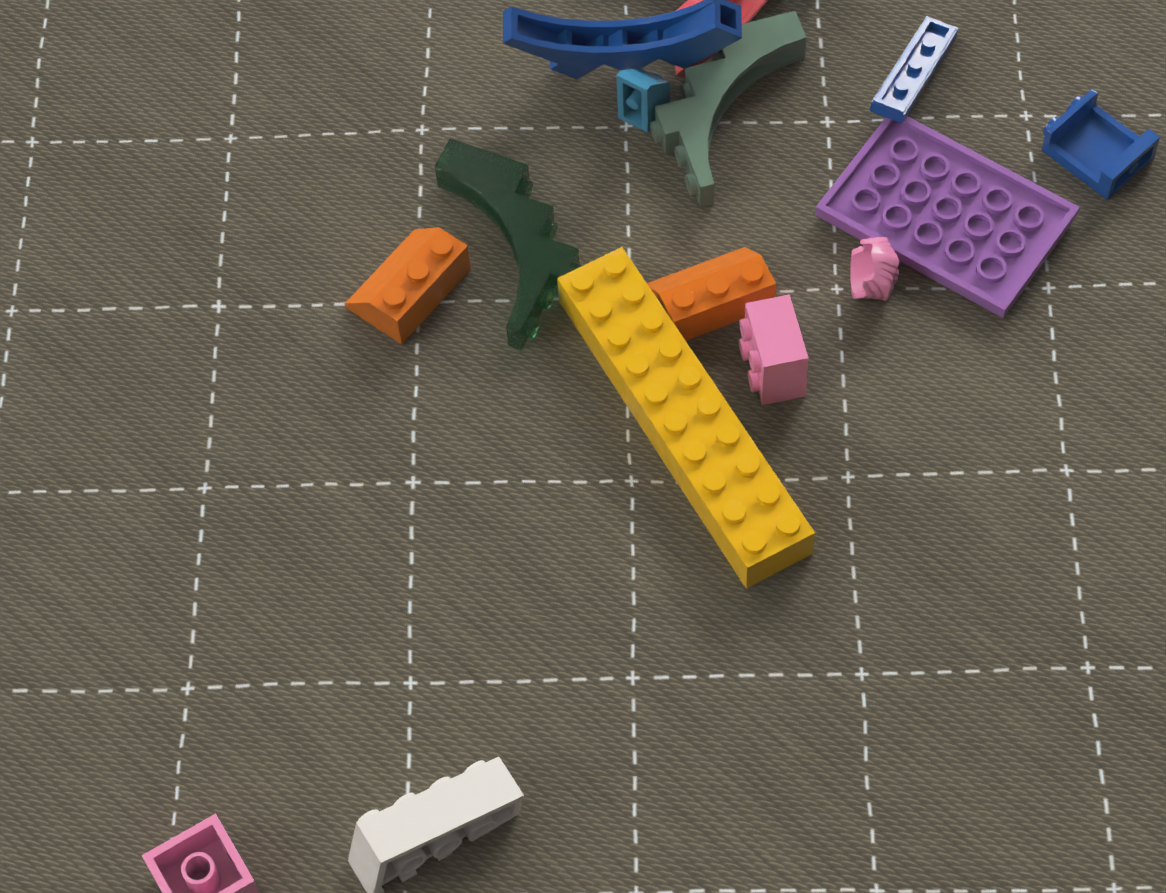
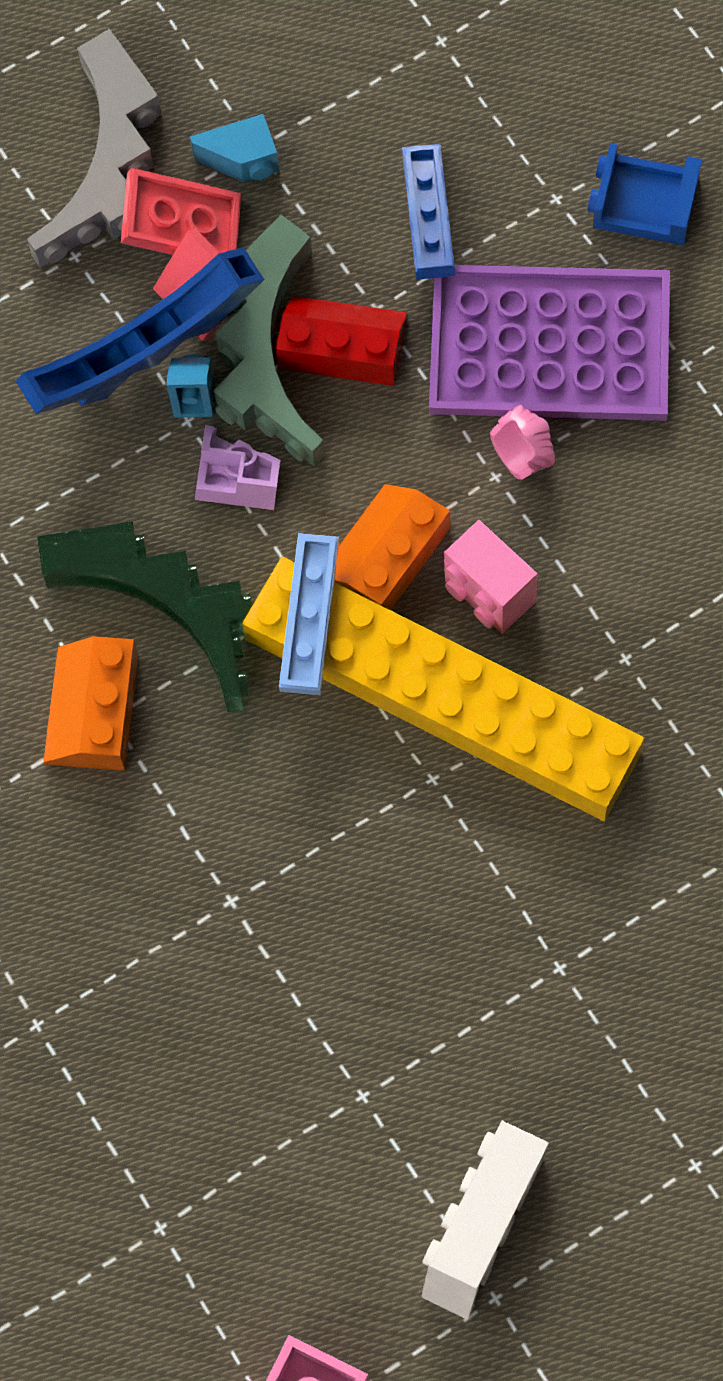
camera: 30 degrees left, 10 degrees up
(610, 296) = (309, 614): none -> light blue tile
(634, 179) = (235, 473): none -> lavender slope
(781, 126) = (341, 340): none -> red slope

